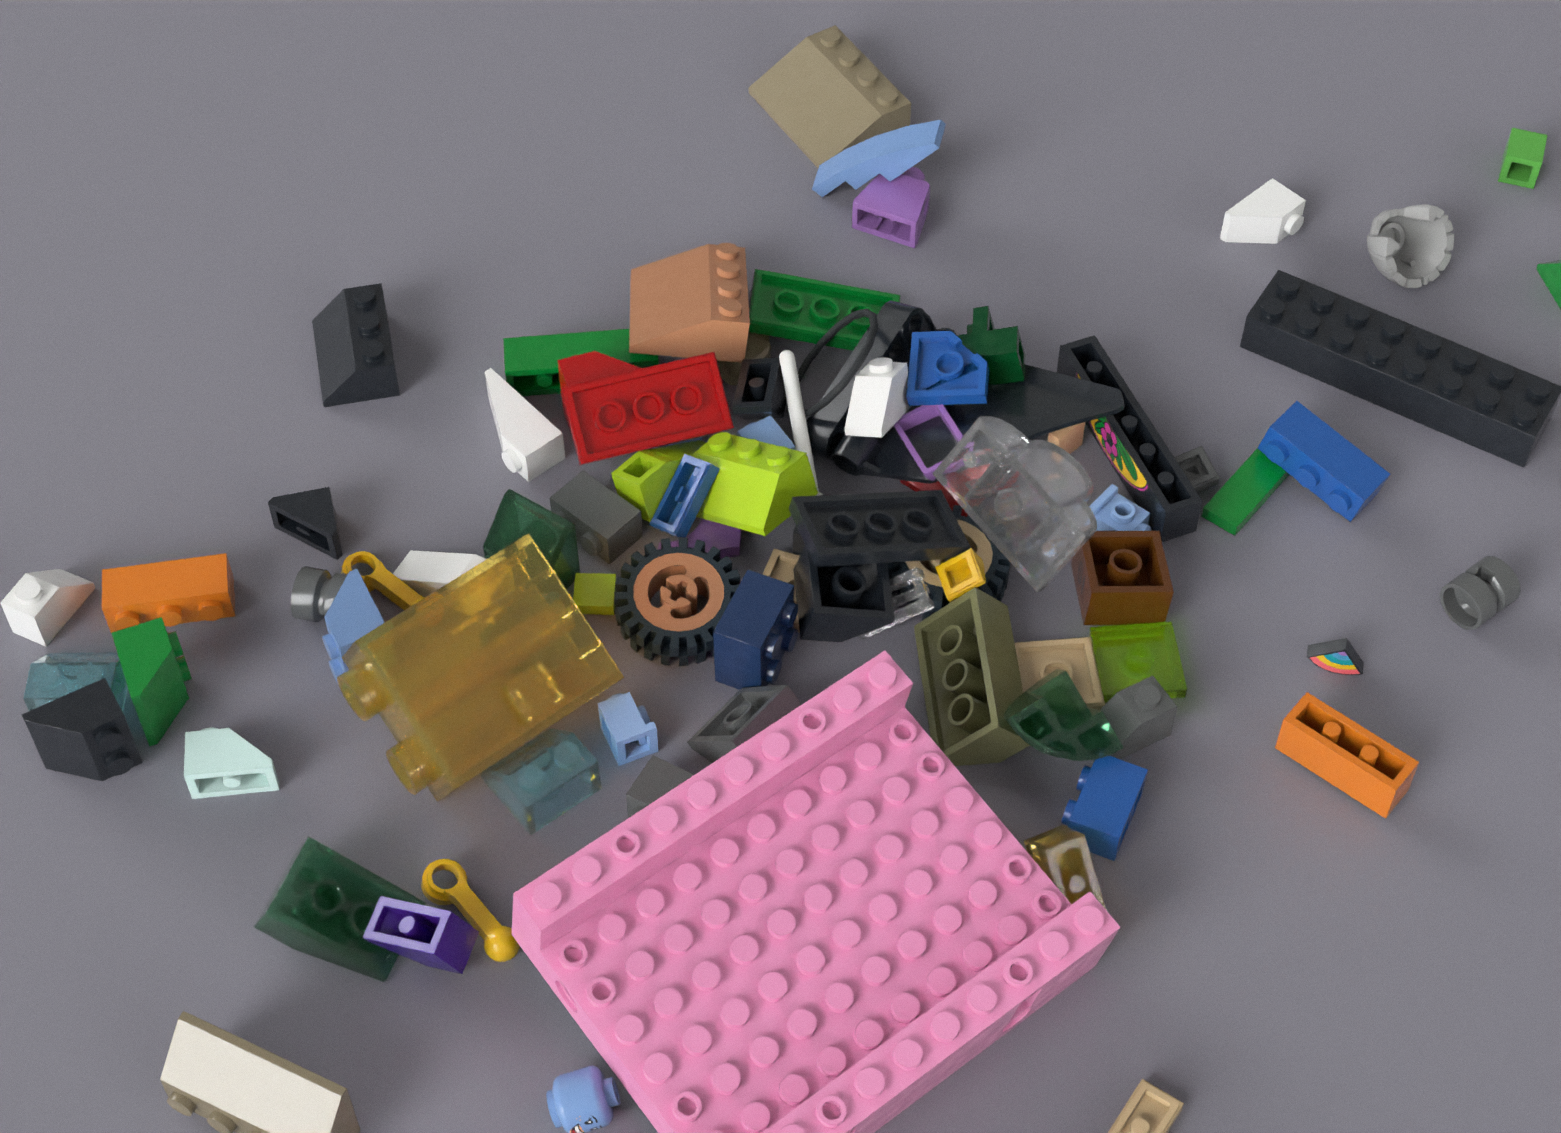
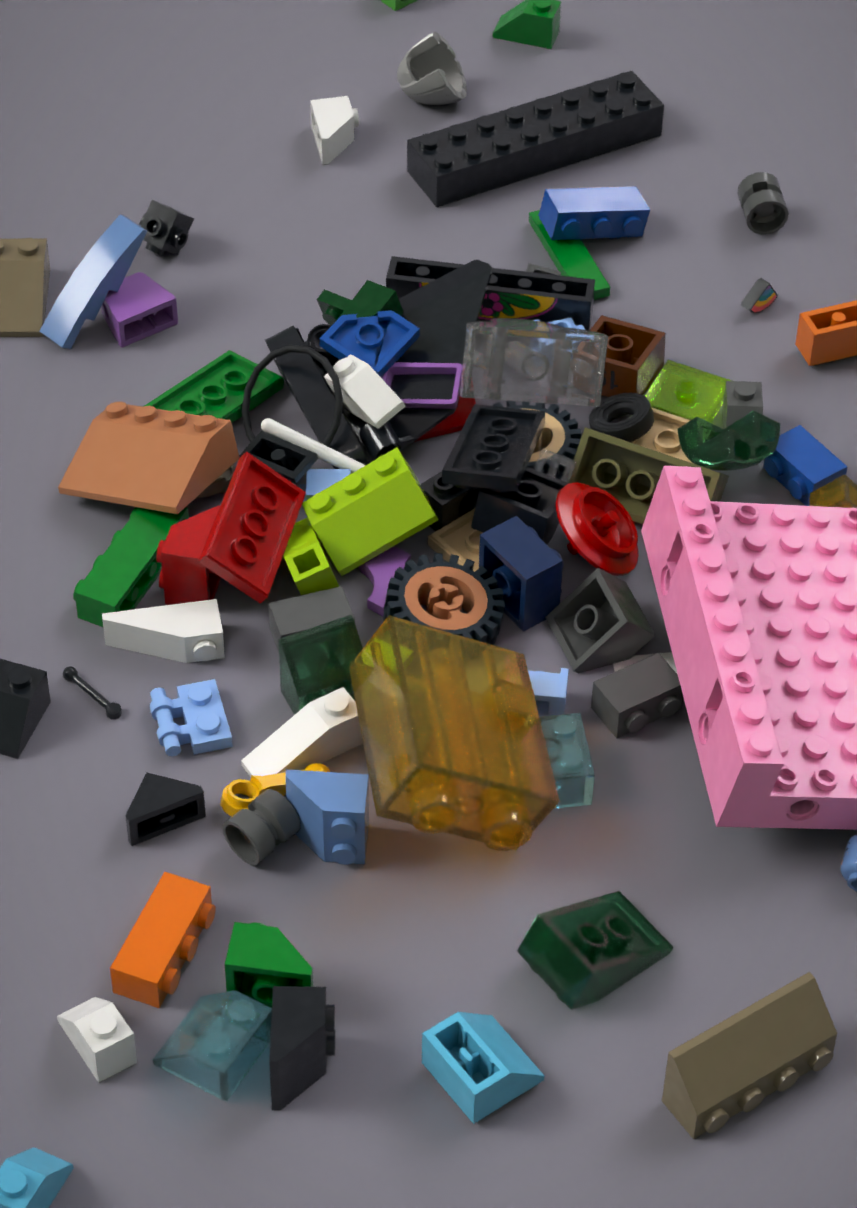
camera: 60 degrees left, 5 degrees down
(148, 881) = (477, 1063): none -> medium azure slope
(225, 764) = (386, 966): light aqua slope -> none
(414, 437) = (113, 710): none -> black hinge
(422, 934) = (659, 895): dark purple slope -> none
(440, 502) = (203, 717): none -> light blue plate
(498, 939) = (683, 862): yellow piece -> none
(683, 503) = (360, 584): blue tile -> none
(853, 639) = (598, 528): none -> red piece
(961, 574) = (561, 433): yellow slope -> none
(1008, 171) = (165, 228): none -> black brick
(1048, 636) = (621, 405): none -> black tyre

